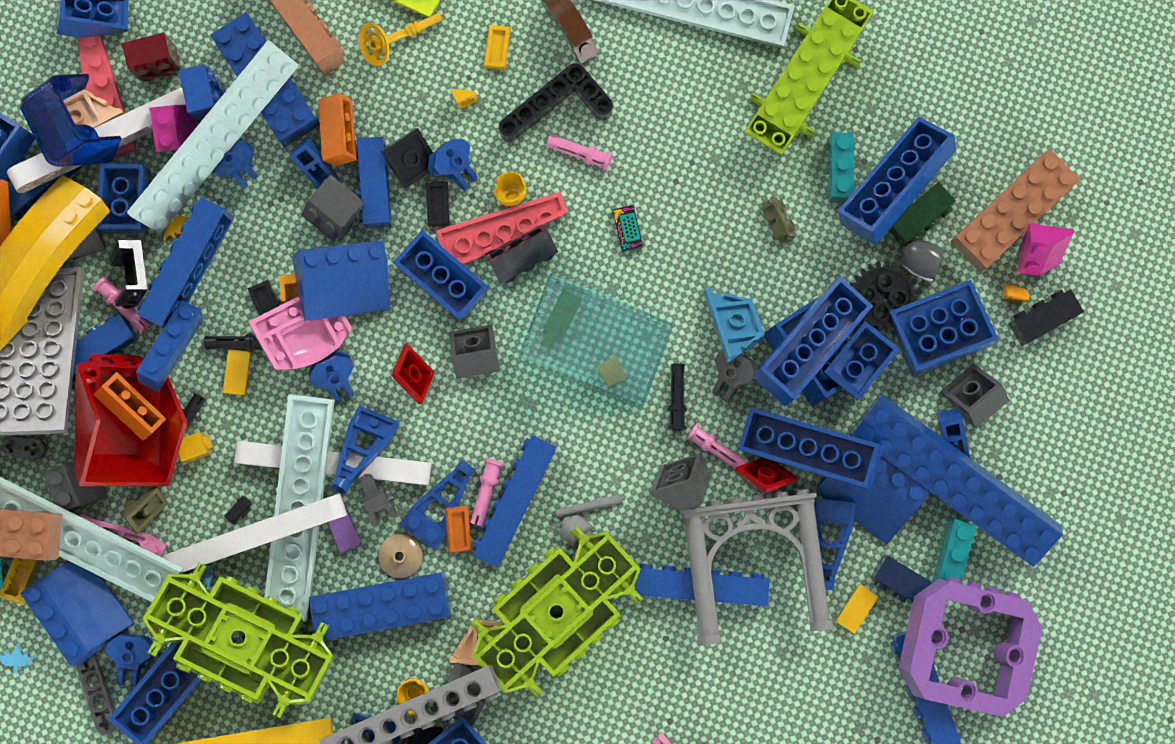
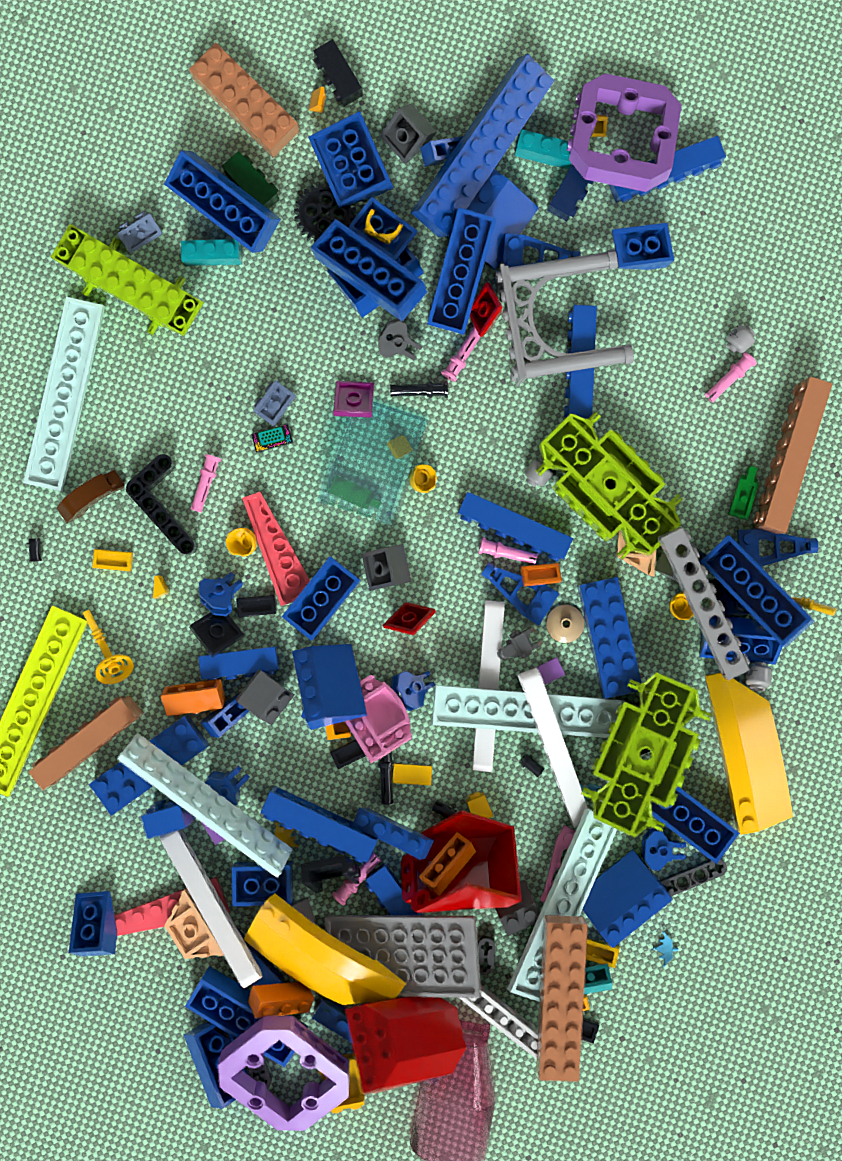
camera: 90 degrees left, 5 degrees up
(55, 130) = (204, 946): clear blue windscreen -> none
(143, 510) = (538, 848): olive slope -> none
(151, 57) = (133, 867): dark red brick -> none
(170, 126) = (197, 844): dark pink slope -> none
(373, 424) = (453, 653): blue plate -> none
(522, 254) = (299, 529): black brick -> none
(574, 397) = (423, 478): none -> yellow hair
(612, 500) = (516, 463): light grey bar -> none
(667, 231) = (274, 403): none -> sand blue bracket
(668, 321) = (353, 399): none -> magenta tile
(682, 482) = (495, 380): dark grey slope -> none
(734, 322) = (353, 340): dark azure wing -> none
(783, 226) = (252, 308): olive hinge -> none
(835, 663) = (643, 247): none -> blue slope
(849, 363) = (385, 238): none -> yellow cap
(856, 608) = (593, 232): yellow tile -> none
(866, 87) = (138, 232): none -> sand blue bracket
(922, 259) = (291, 179): dark grey piece -> none
(983, 620) = (601, 126): none -> yellow slope
(1042, 248) = (278, 76): dark pink slope -> none

